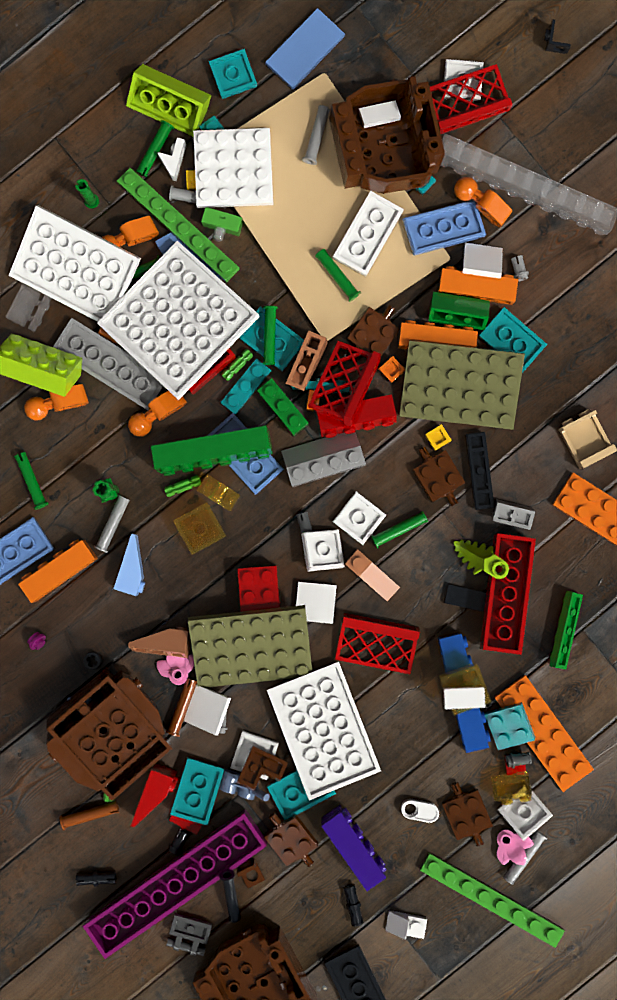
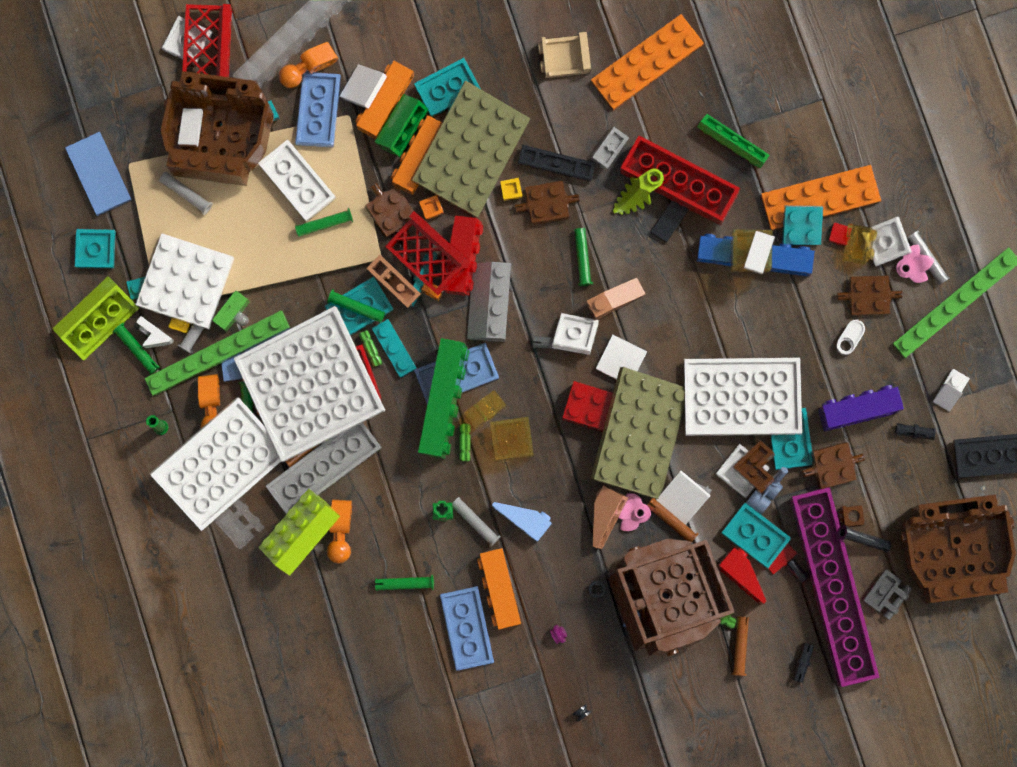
camera: 70 degrees left, 5 degrees down
(160, 408) = (391, 458): orange beam -> none
(282, 407) = (428, 320): green brick -> none
(359, 518) = (558, 290): white tile -> none
(380, 627) = (670, 305): red fence -> none
(518, 759) = (835, 229): dark grey pin -> none
(519, 269) = (384, 56): light grey pin -> none

